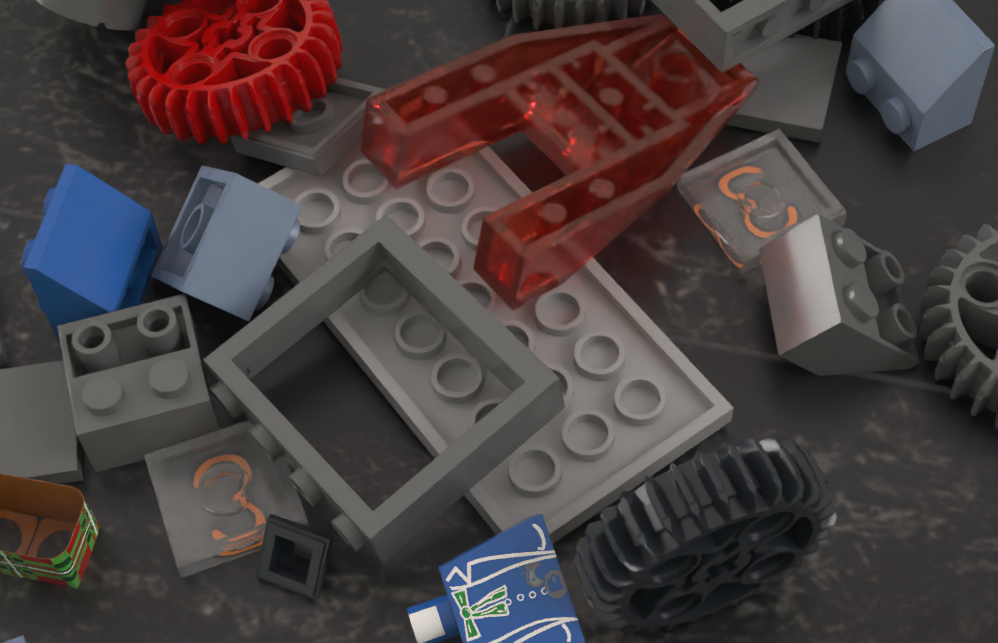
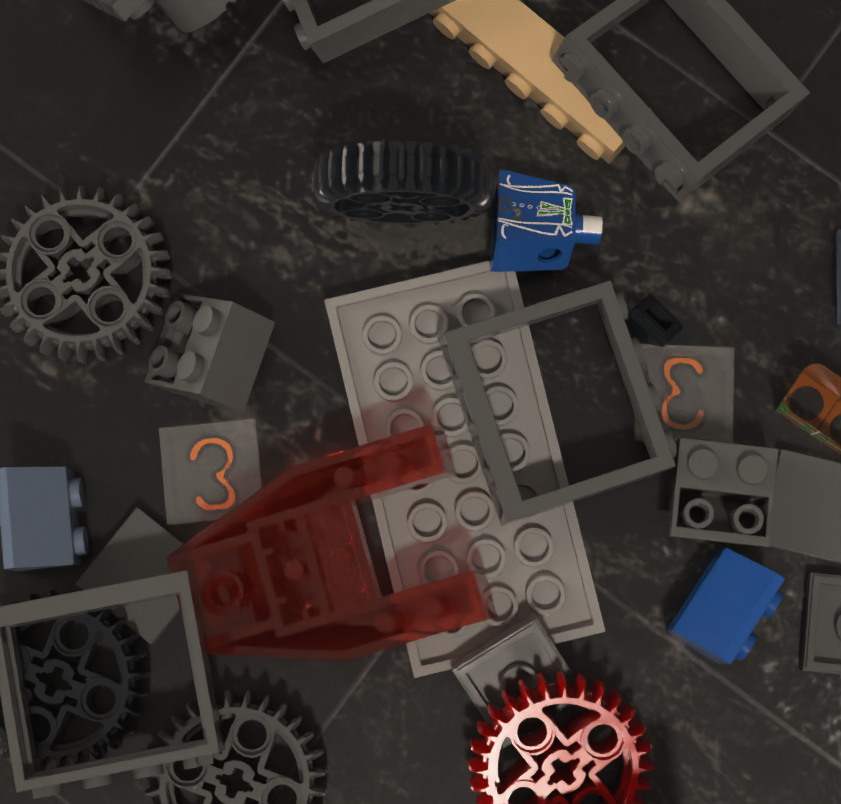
camera: 160 degrees left, 25 degrees up
(228, 242) = (626, 580): sand blue slope -> none

